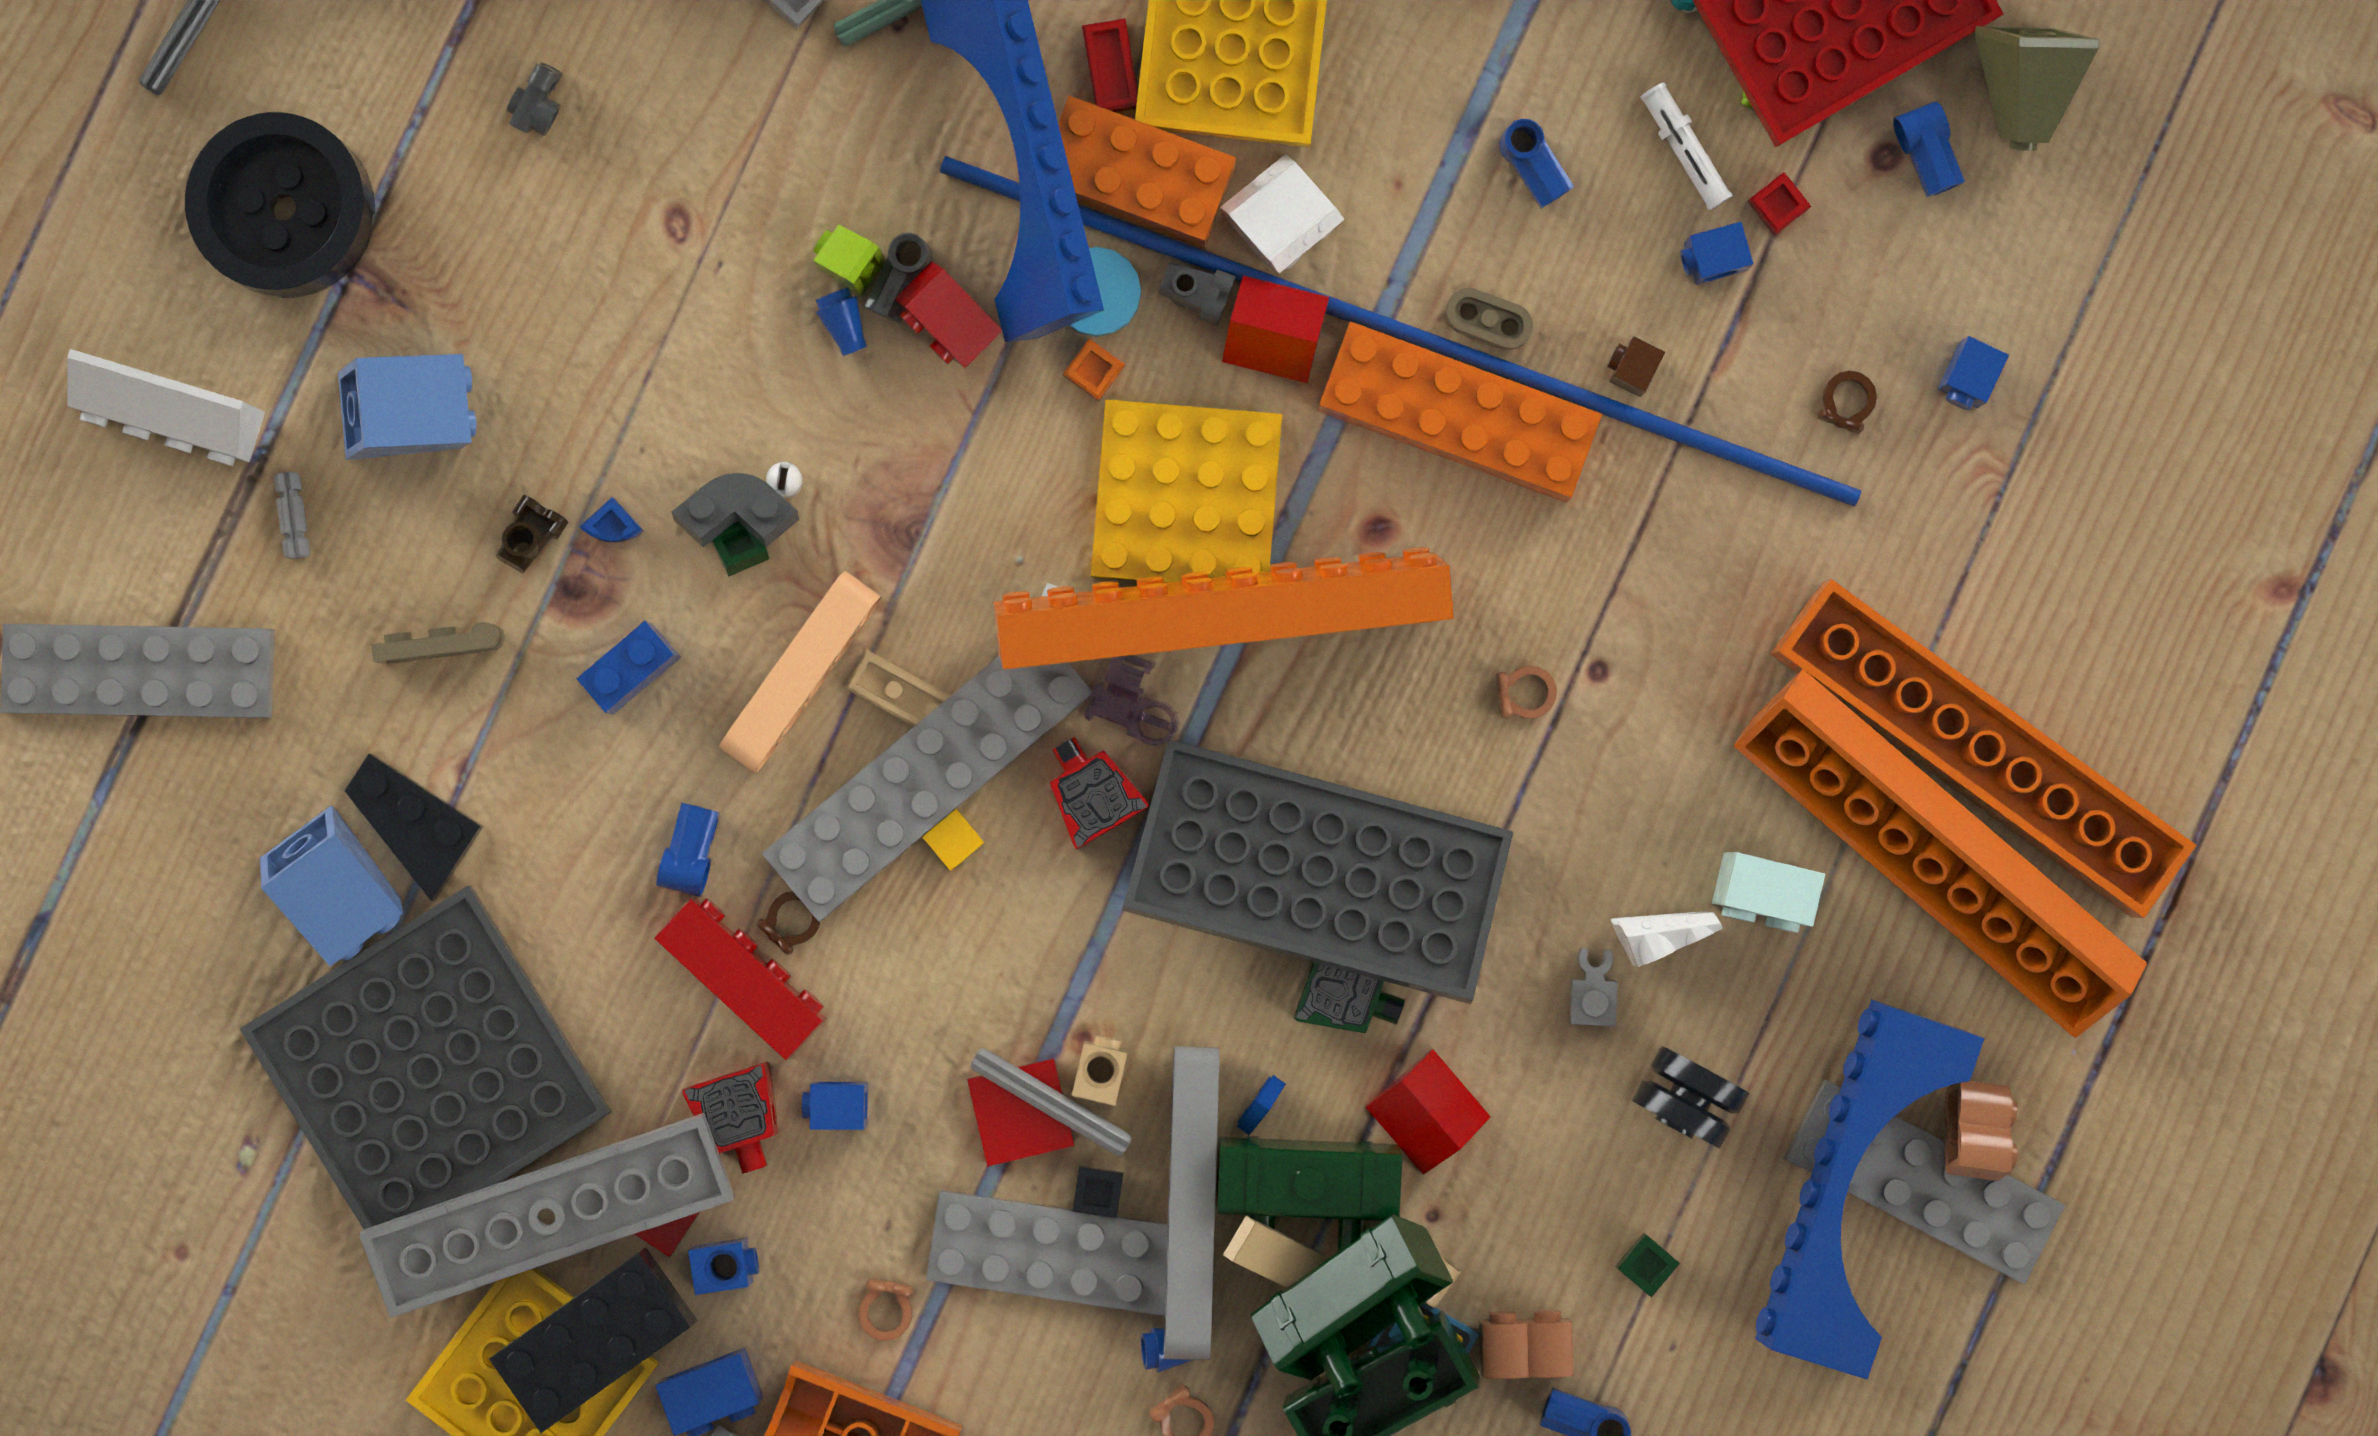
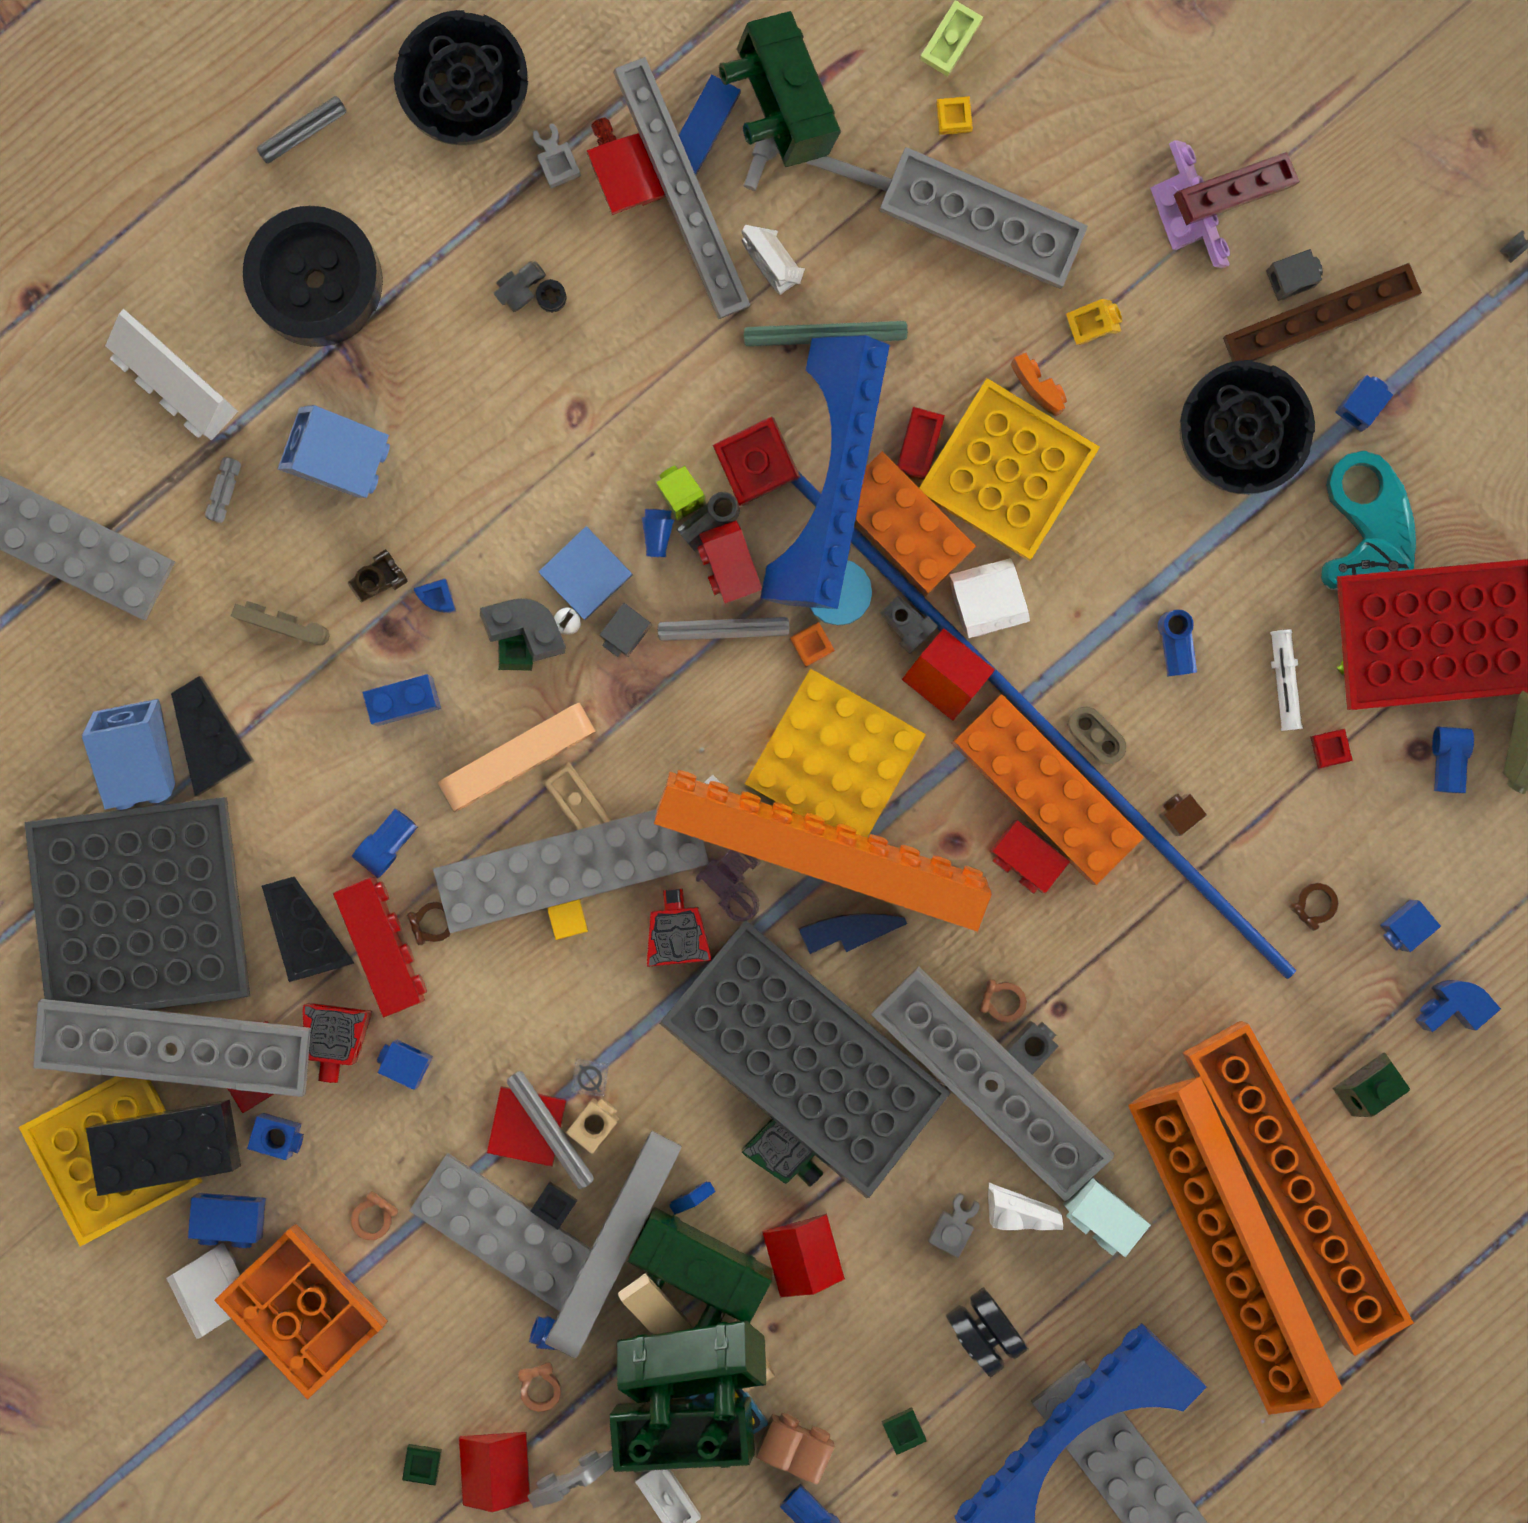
camera: 20 degrees right, 0 degrees up
(579, 108) = (546, 304): none -> black bush
(638, 1005) = (301, 931): none -> black wing
(779, 411) = (585, 573): none -> medium blue tile
(859, 458) = (624, 631): none -> dark grey brick
(923, 179) = (756, 461): none -> red tile
(977, 401) = (723, 628): none -> light grey axle
(1070, 1018) = (590, 1077): none -> clear tile
(1299, 692) = (850, 929): none -> dark blue slope
(1475, 504) = (1028, 857): none -> red brick
(1571, 745) = (1032, 1062): none -> dark grey brick
(1605, 808) = (1020, 1108): none -> light grey piece
(1716, 253) = (1273, 763): blue brick -> none
(1979, 1130) = (1173, 1447): nougat brick -> none
(2017, 587) = (1373, 1086): none -> dark green torso
(2077, 431) = (1463, 999): none -> blue brick

